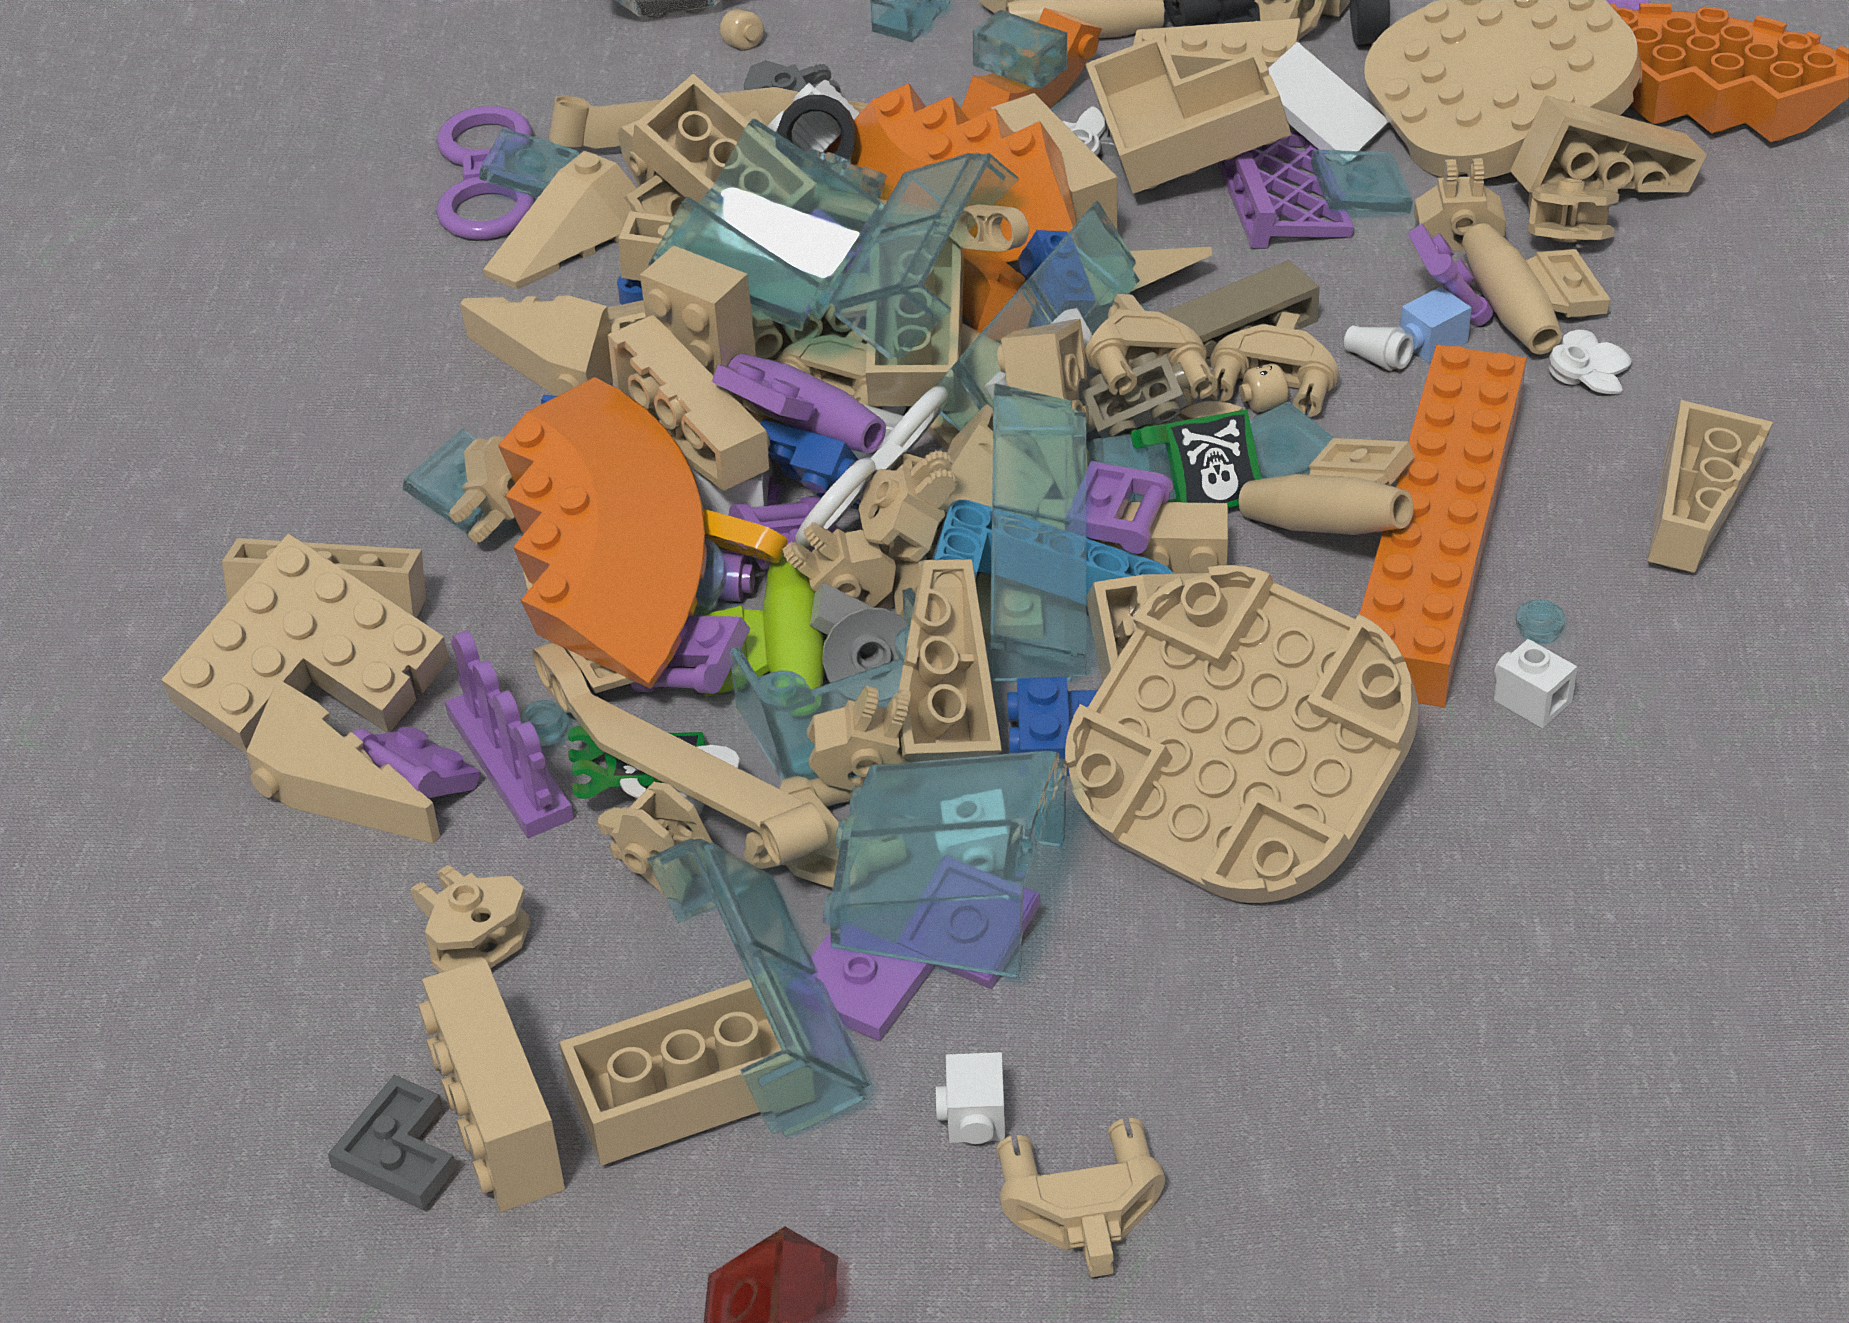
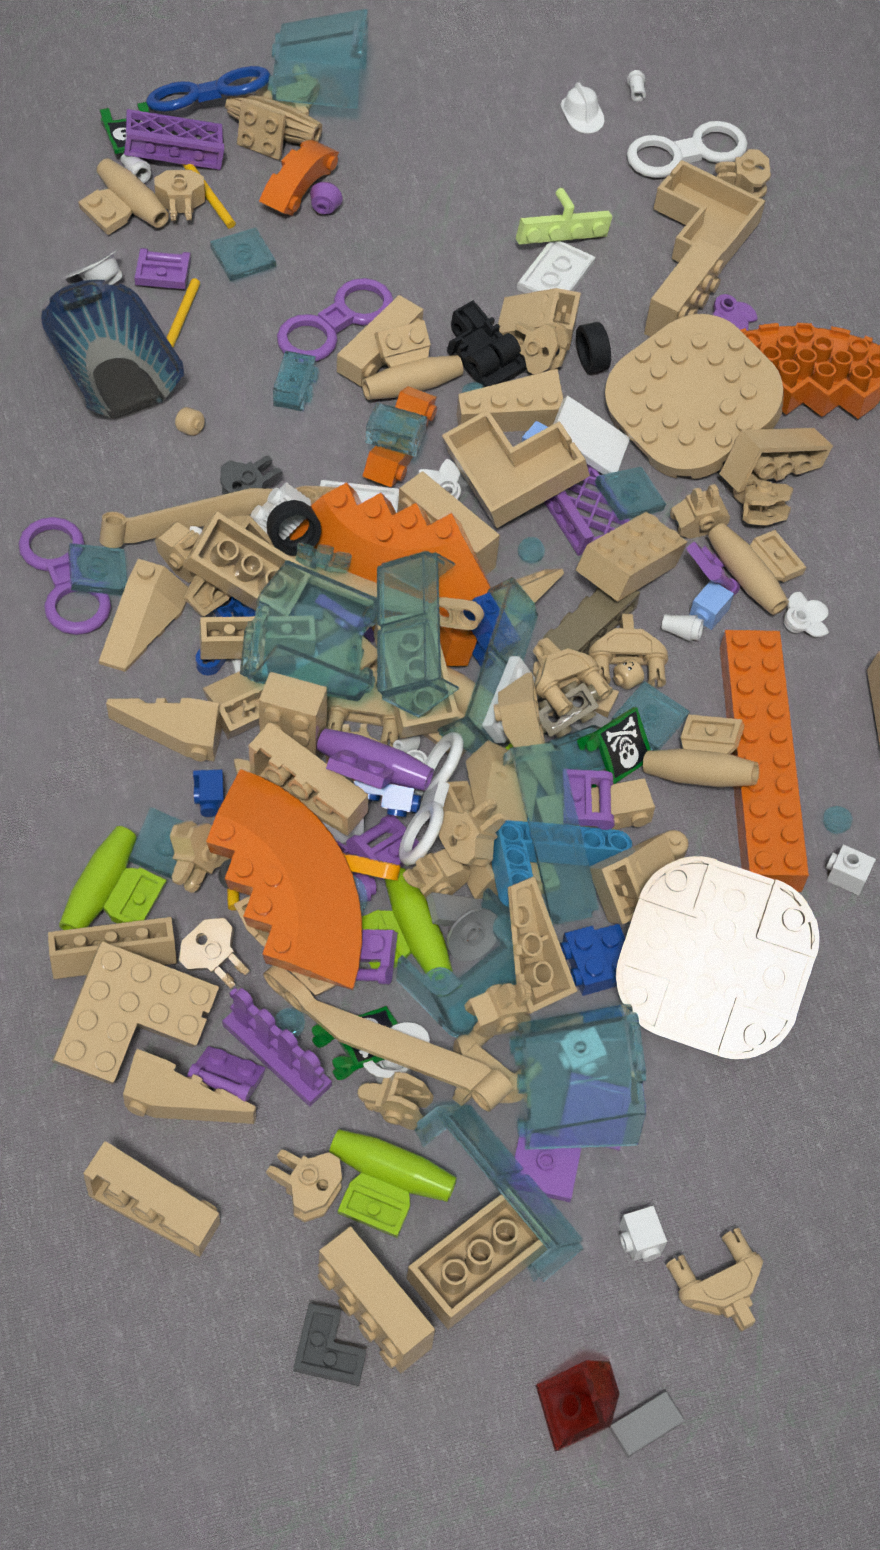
camera: 25 degrees left, 15 degrees up
(220, 888) = (150, 1199): none -> tan wedge
(368, 507) = (112, 887): none -> lime plate
(471, 605) = (212, 953): none -> tan hinge
(592, 938) = (387, 1177): none -> lime plate
(1178, 227) = (531, 550): none -> clear light blue plate
(1320, 237) = (631, 556): none -> tan brick

